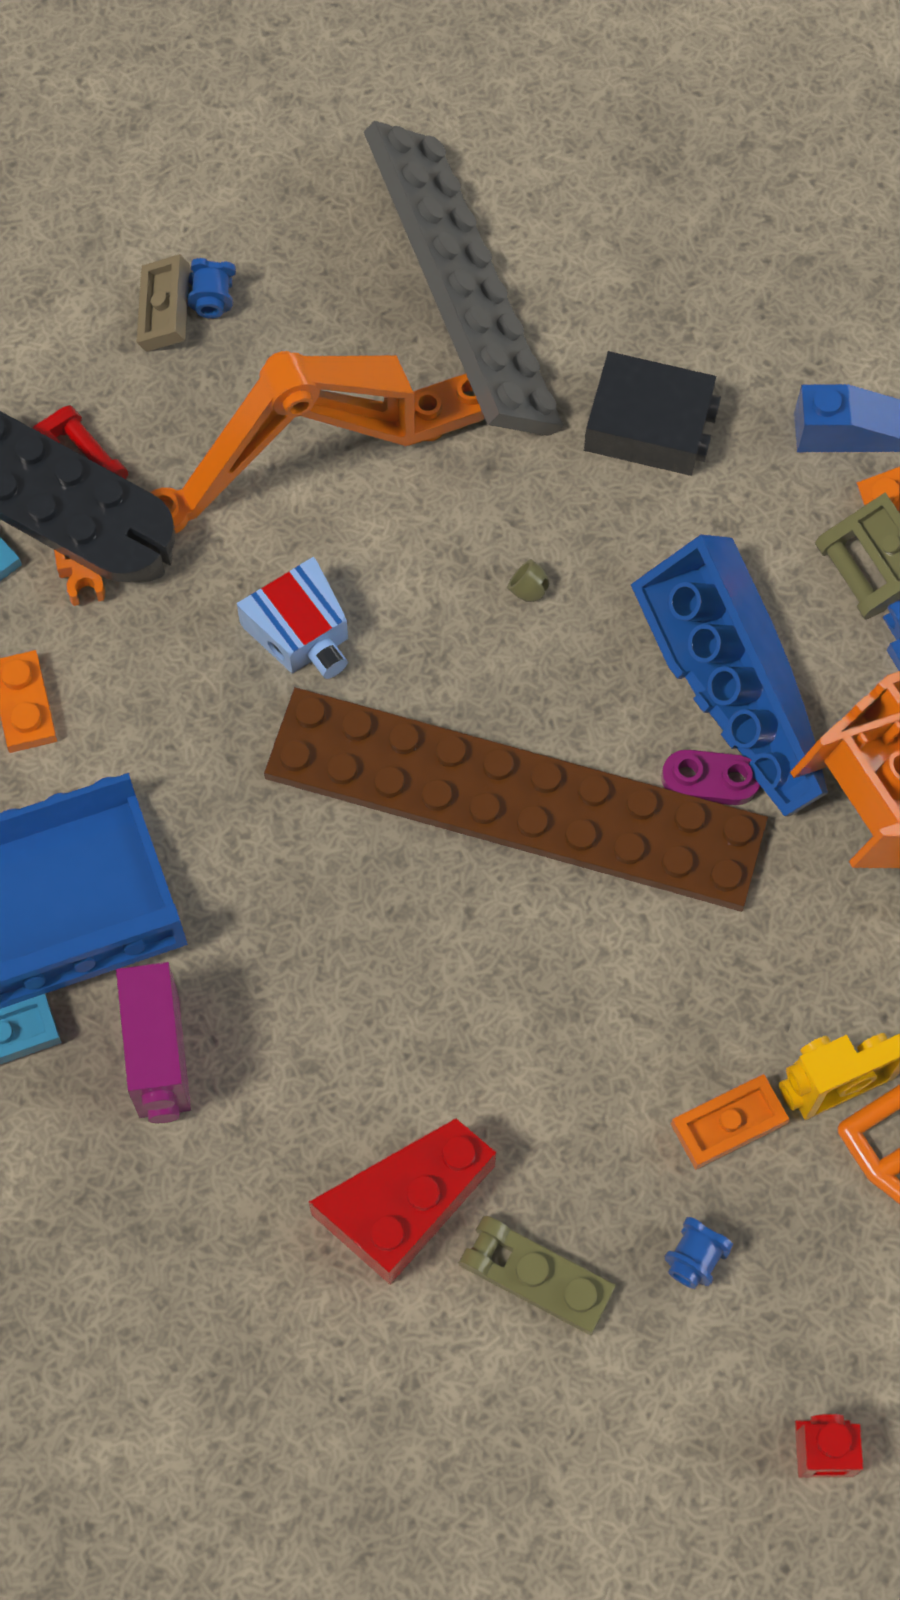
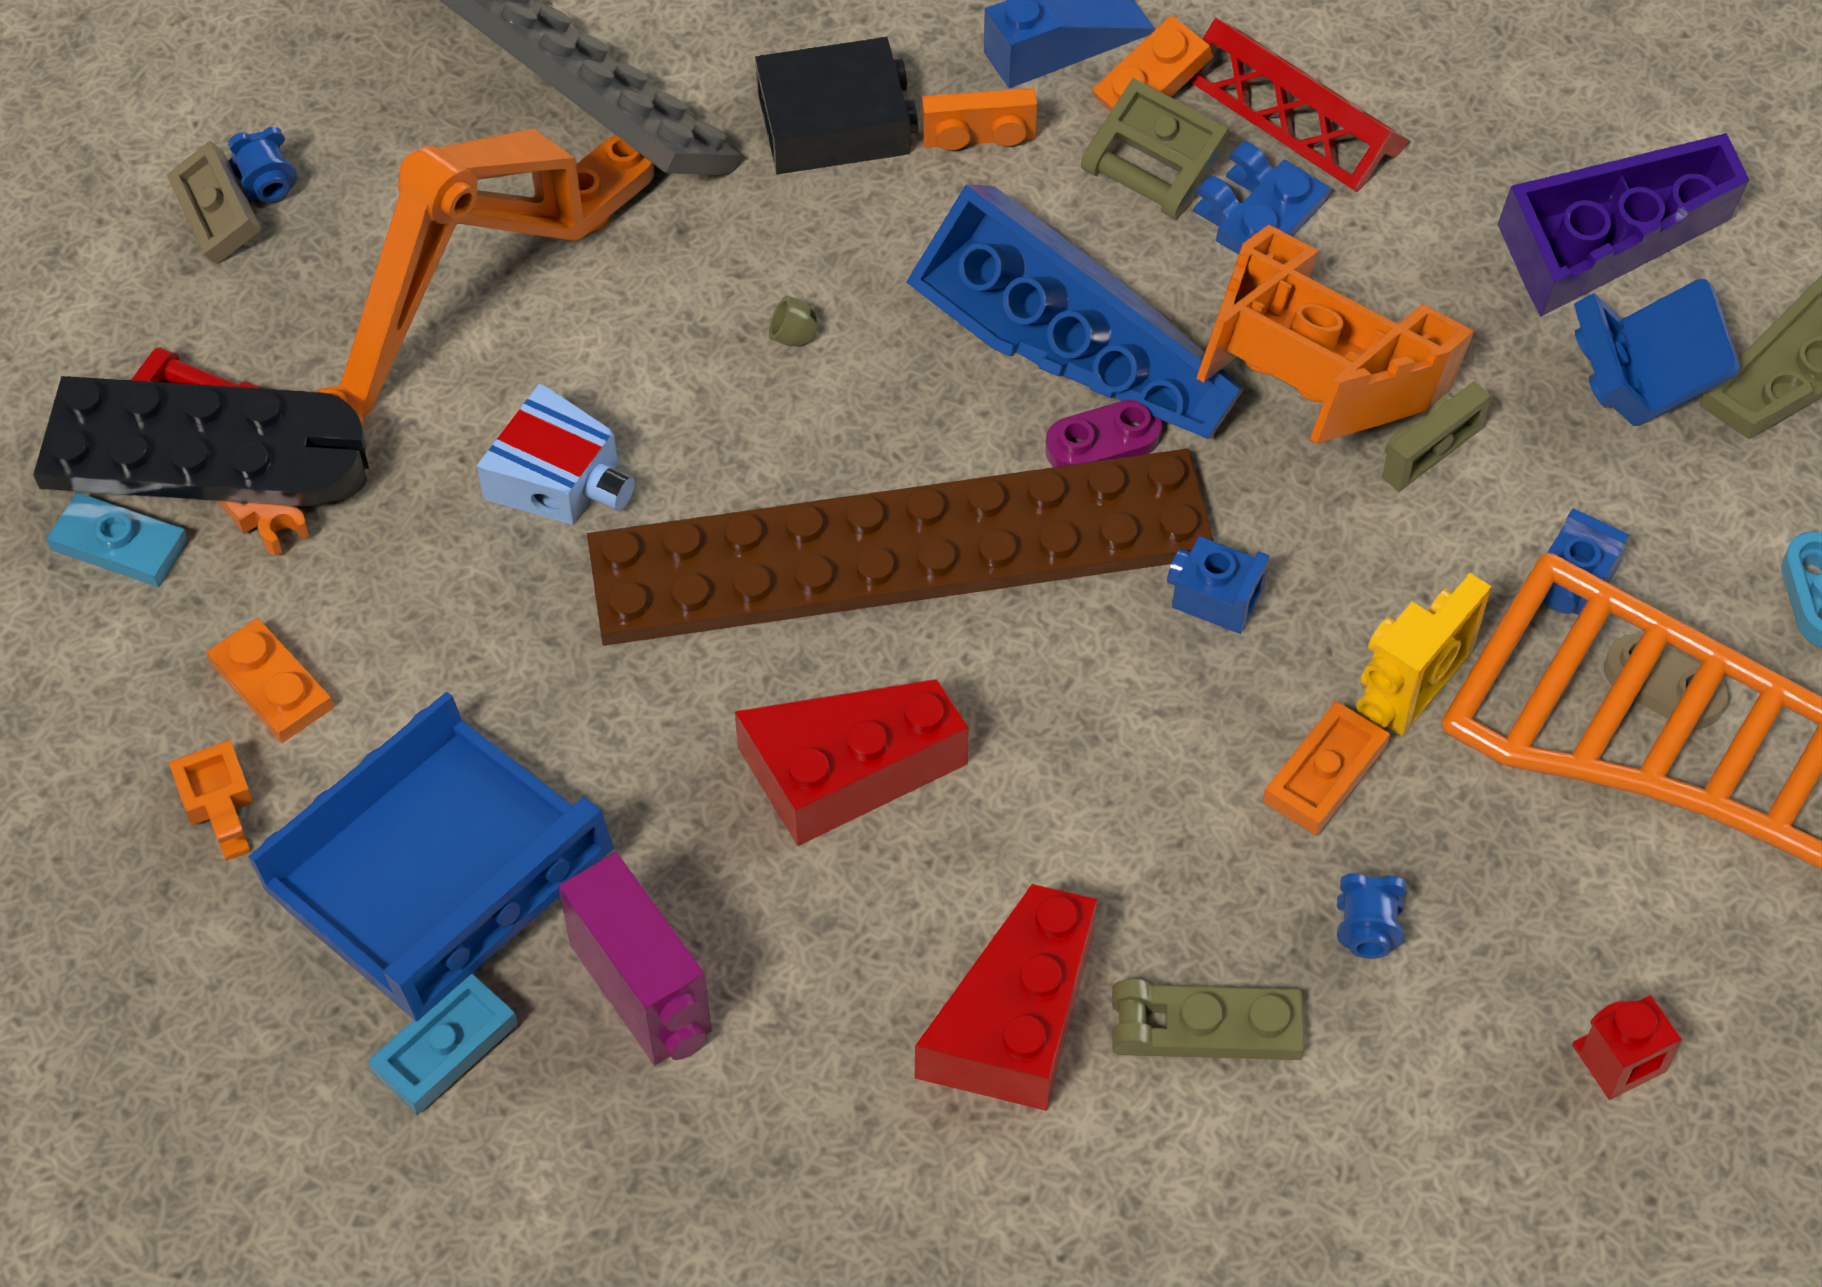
camera: 25 degrees left, 10 degrees down
(389, 949) = (850, 752): none -> red wedge
(729, 953) = (1217, 583): none -> blue brick
(768, 476) = (979, 118): none -> orange plate

